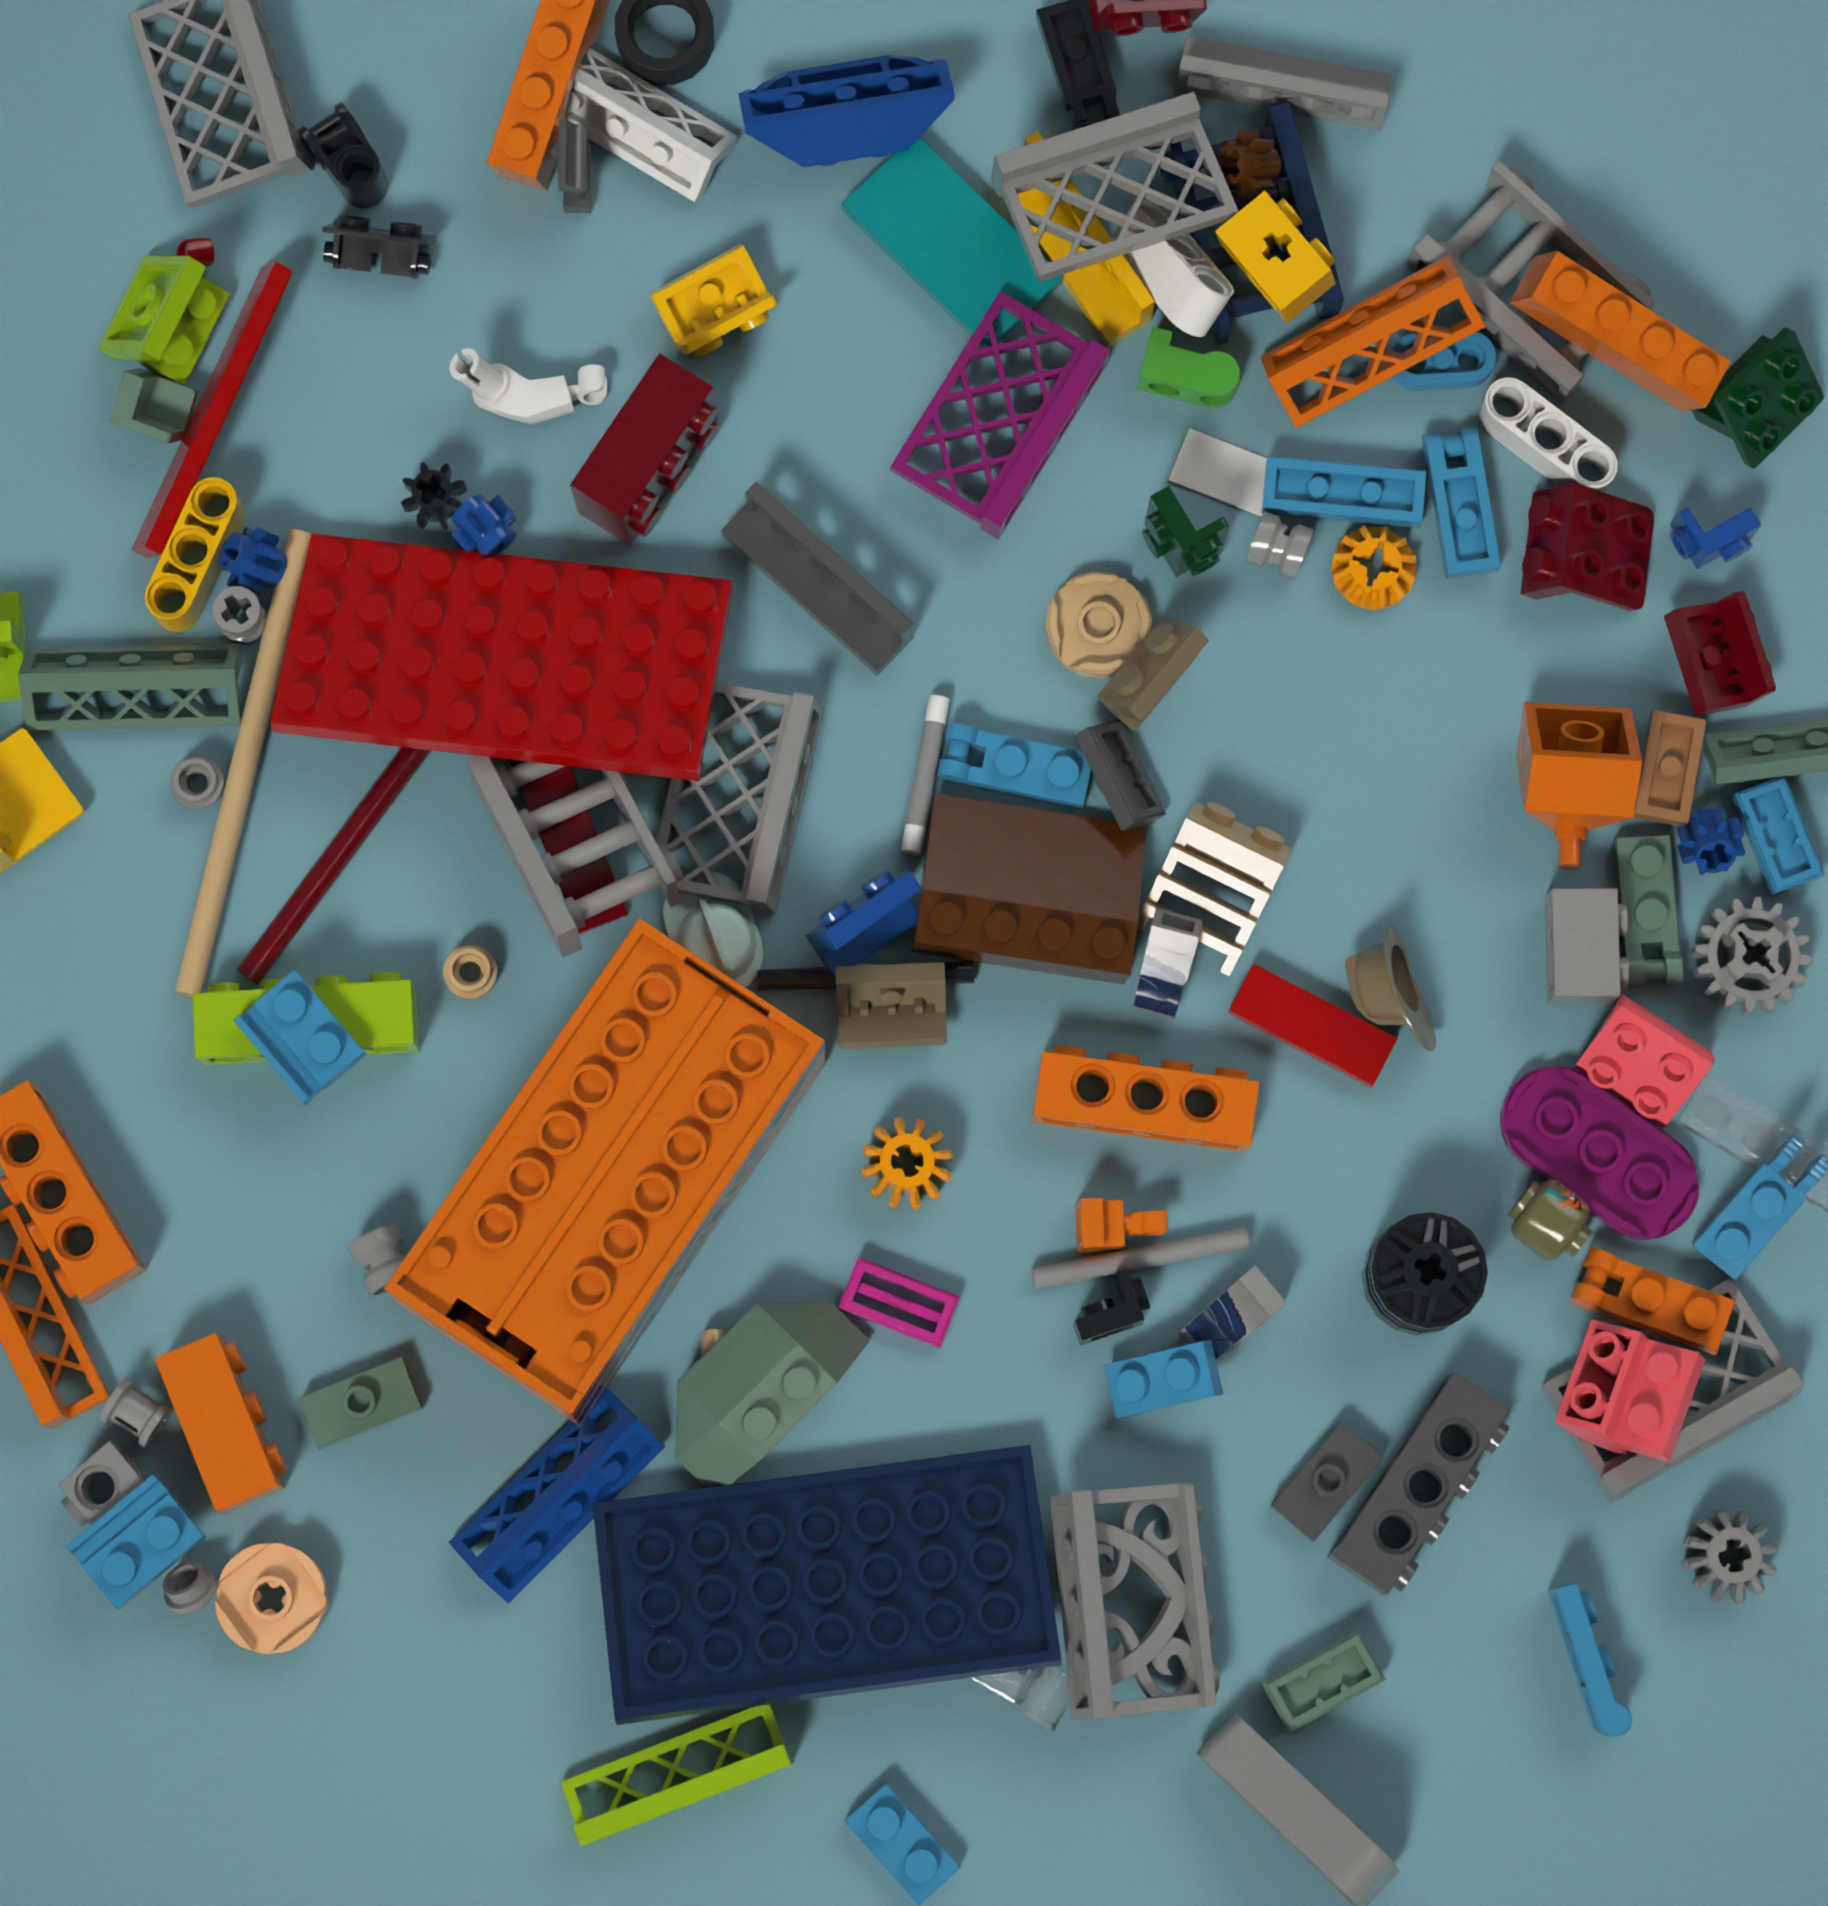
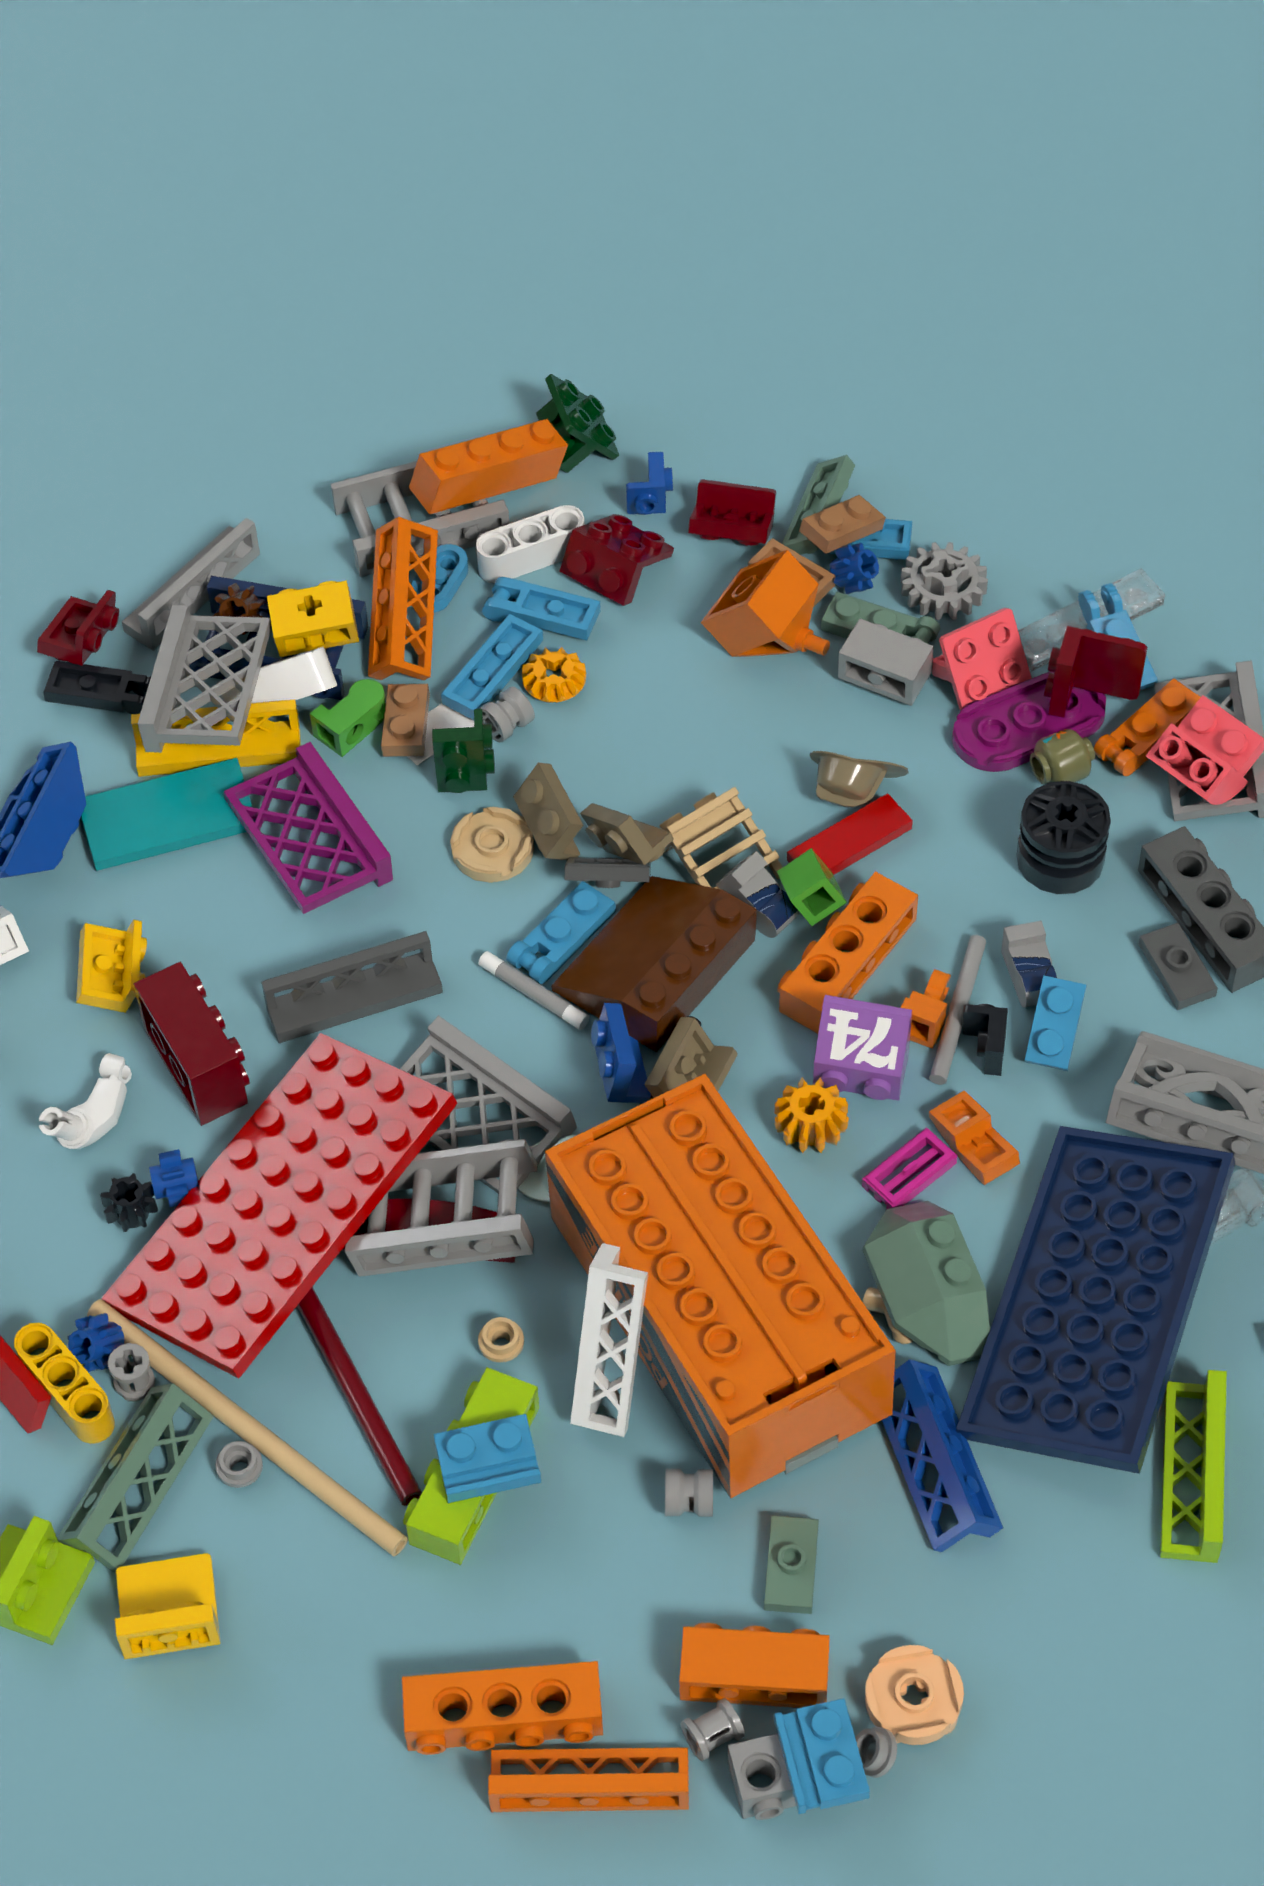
camera: 60 degrees left, 25 degrees down
(466, 1085) = (598, 1346): none -> white fence
(975, 1354) = (971, 1136): none -> orange slope
(1007, 1182) = (862, 1047): none -> medium lavender slope
(1164, 778) = (624, 835): none -> dark tan bracket
(1201, 1019) = (811, 887): none -> bright green brick
(1218, 434) = (405, 720): none -> medium nougat plate
(1690, 1185) = (1094, 664): none -> dark red bracket
(1759, 796) = (842, 524): none -> medium nougat plate

